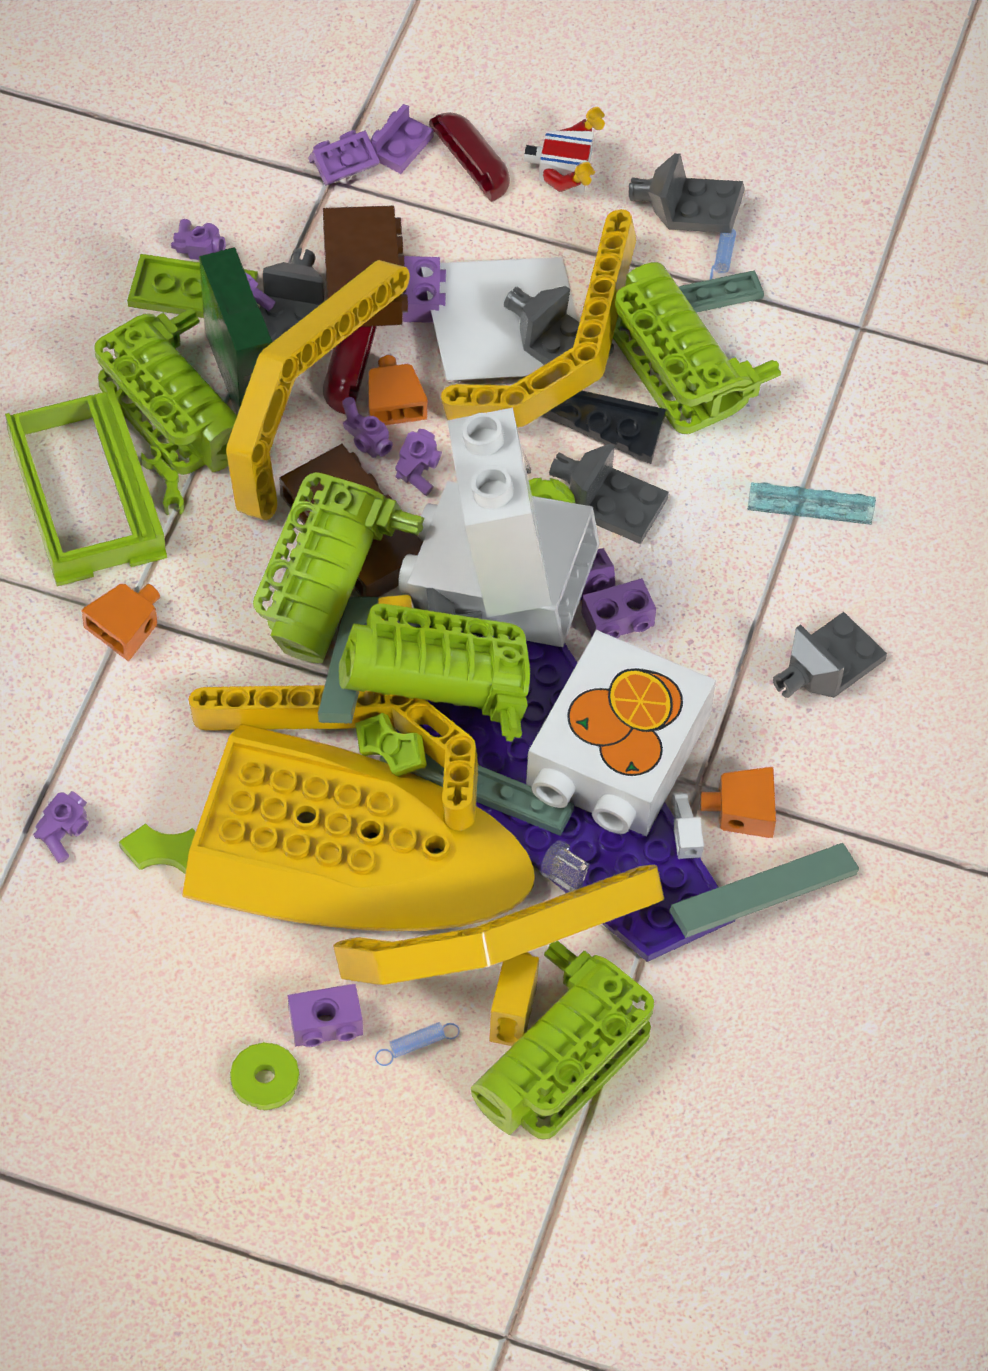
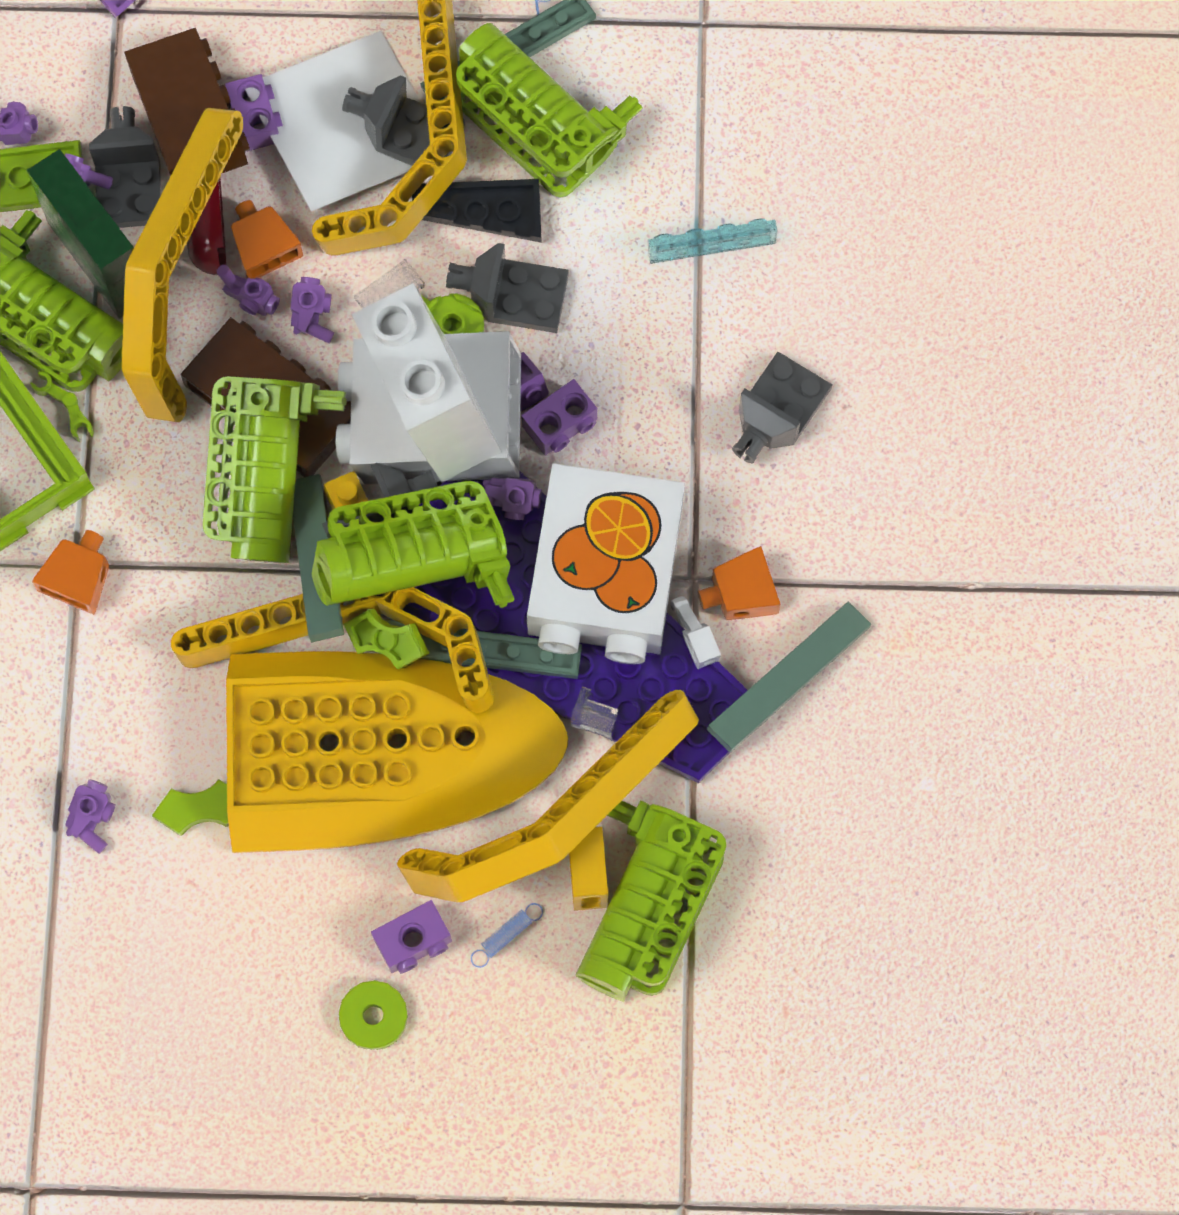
camera: 15 degrees left, 15 degrees up
(552, 658) = (514, 495): none -> medium lavender piece

